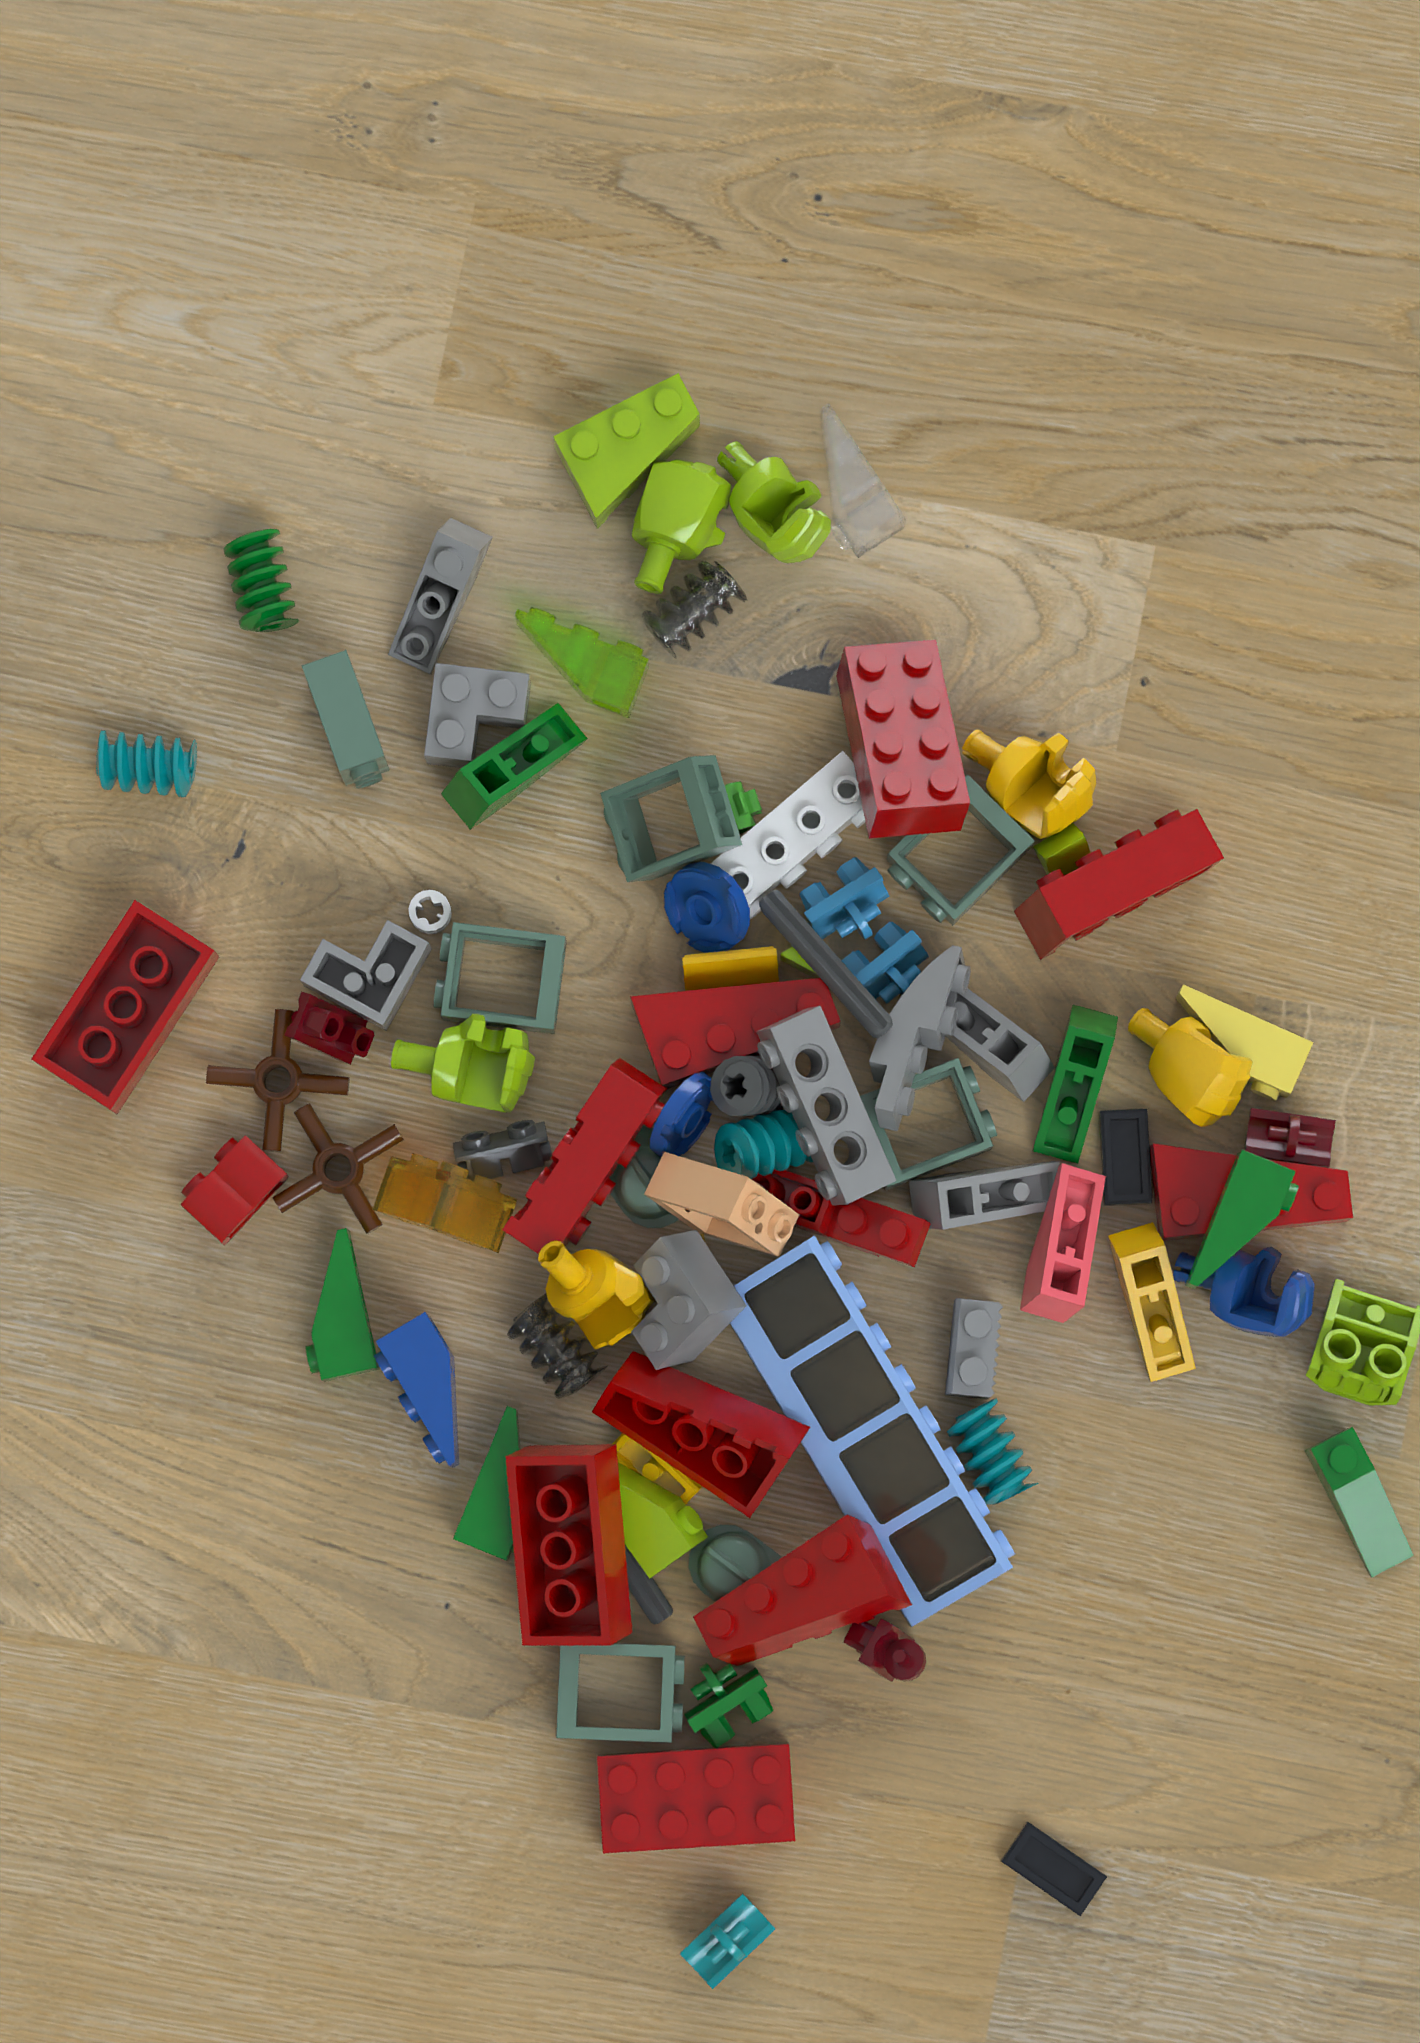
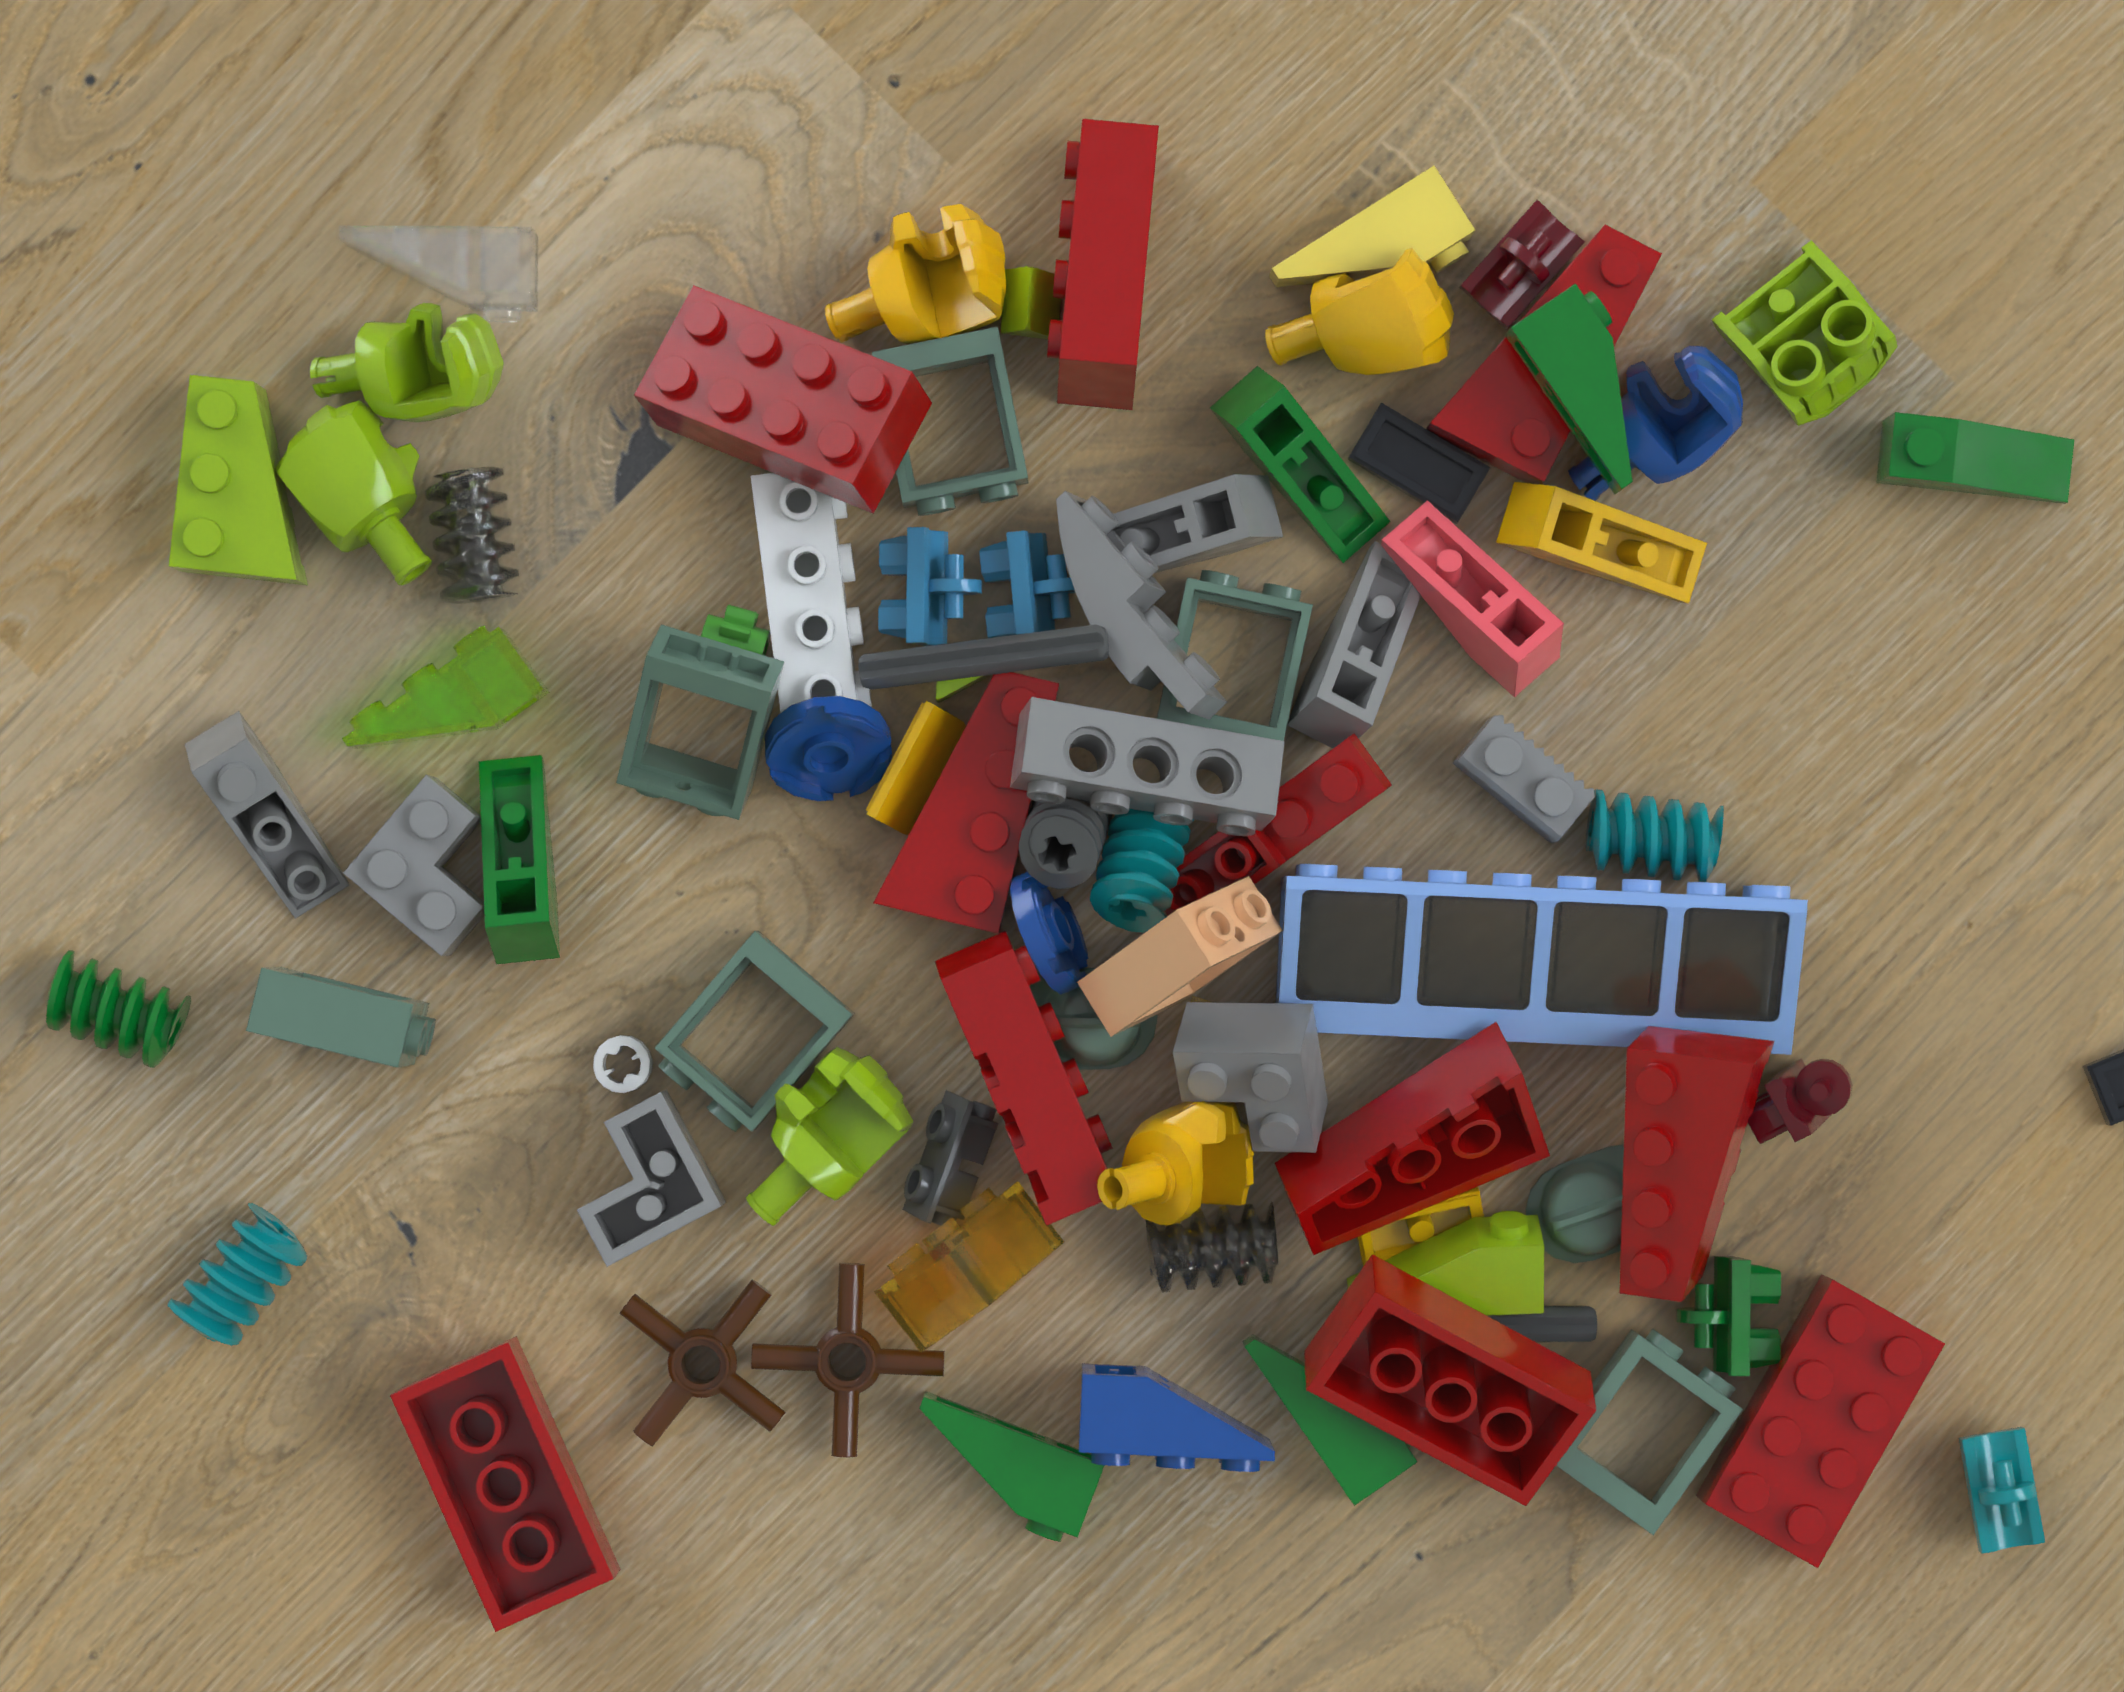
camera: 55 degrees left, 5 degrees up
(233, 1189) = (793, 1494): red brick -> none
(329, 1029) = (684, 1267): dark red hips -> none

